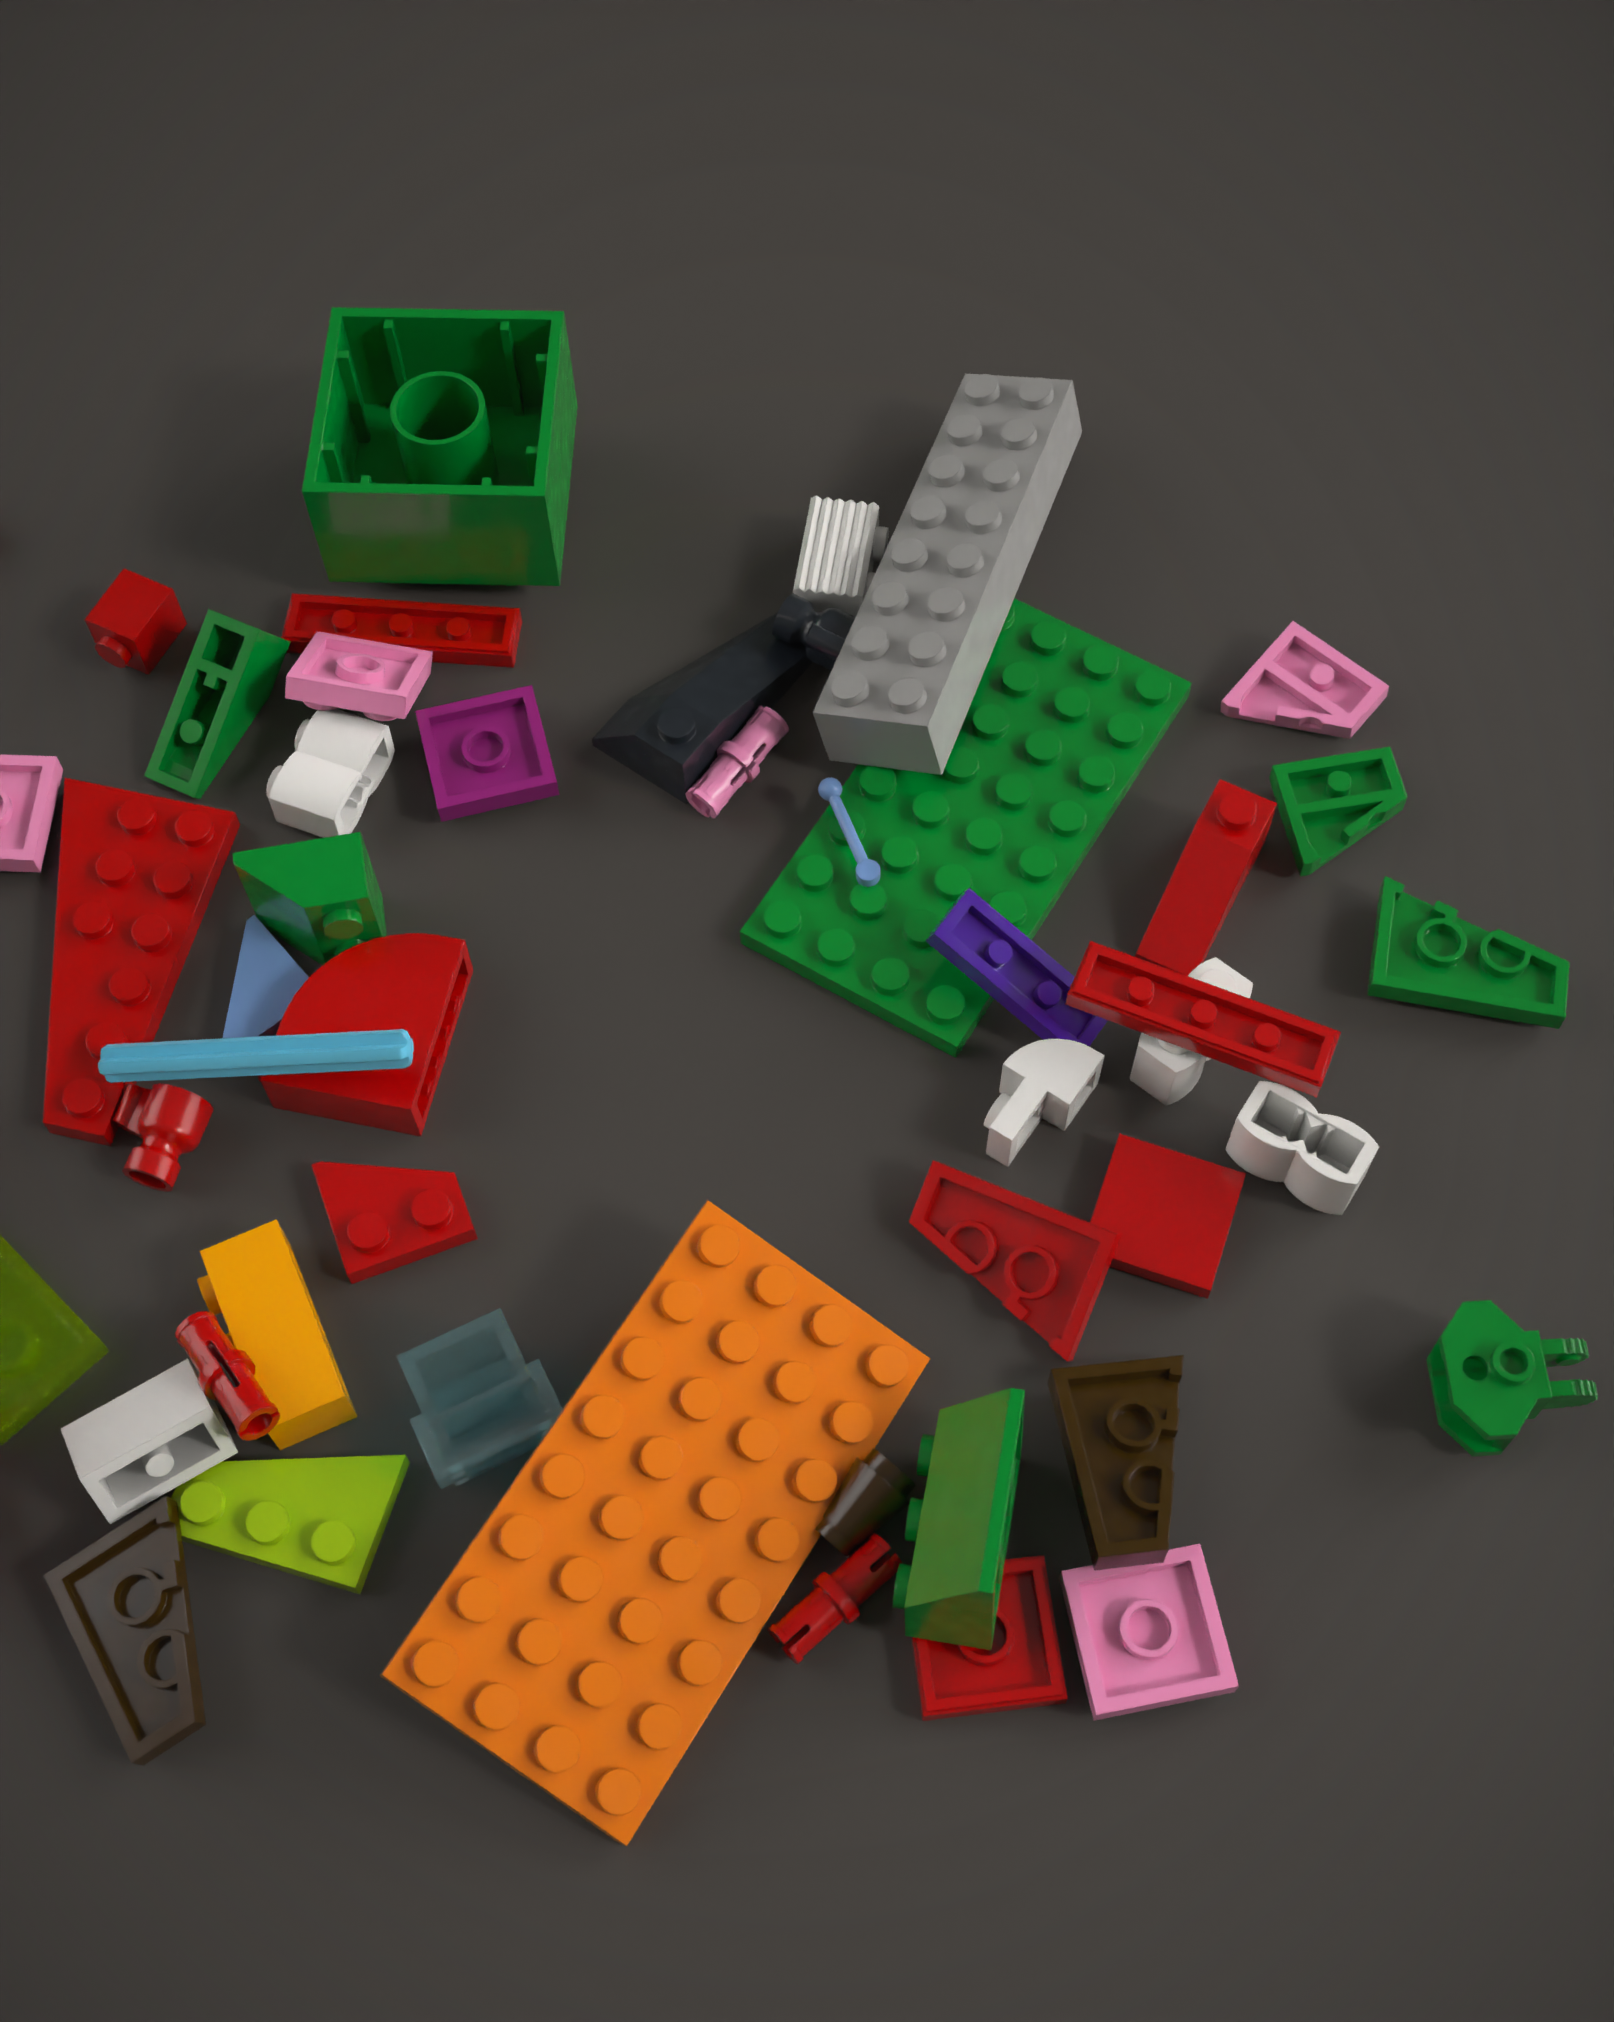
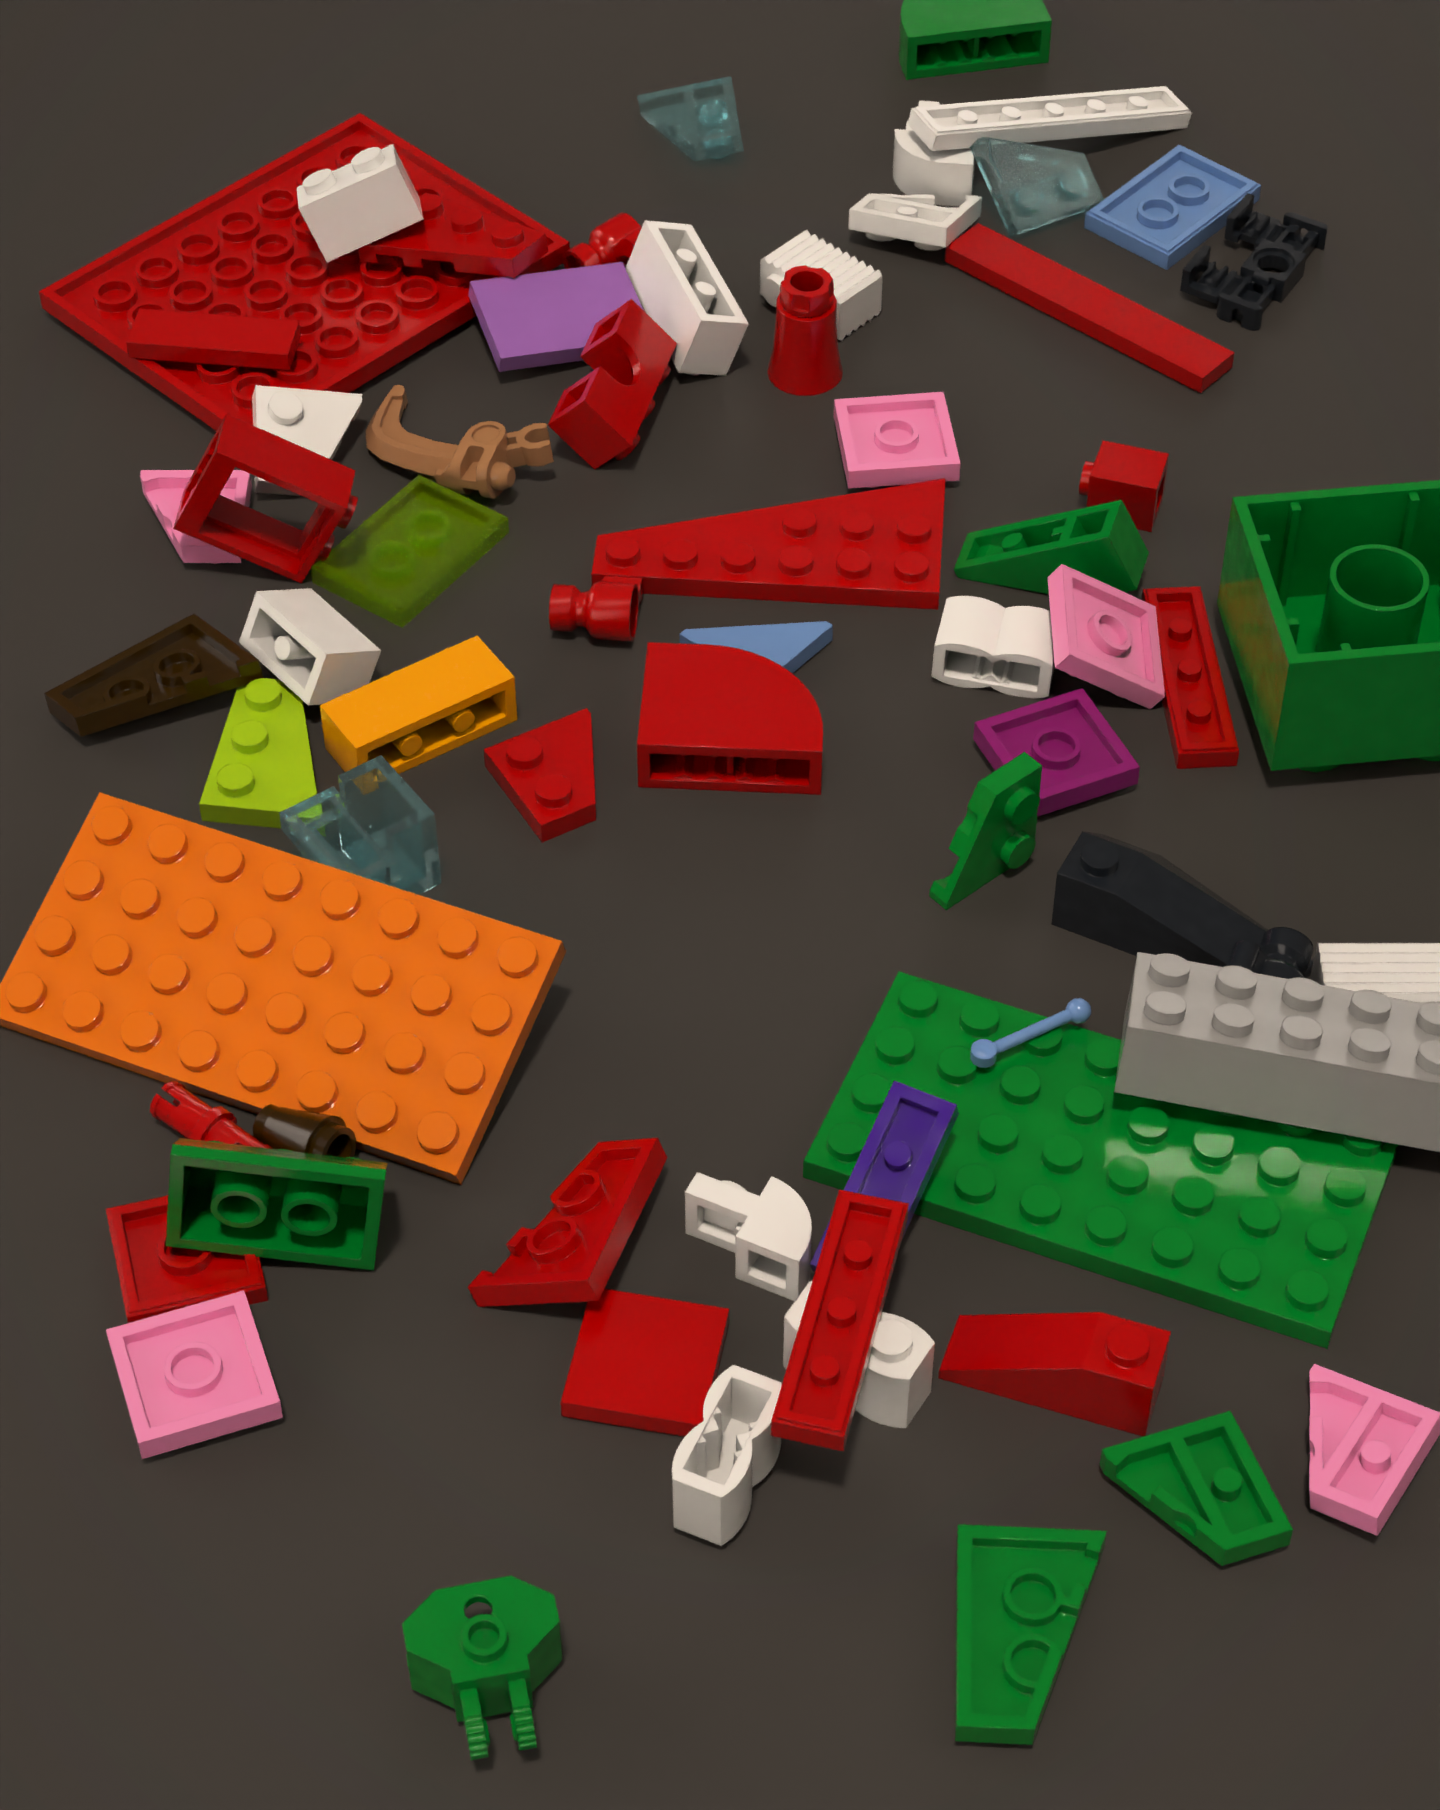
camera: 80 degrees right, 15 degrees down
(246, 1402) = (359, 665): red pin -> none
(257, 1056) = (664, 630): medium azure axle -> none
(315, 893) = (843, 649): green slope -> none
(599, 811) = (995, 831): none -> green wing
(737, 762) = (1095, 941): bright pink pin -> none
(1119, 1451) = (371, 1330): dark brown wing -> none

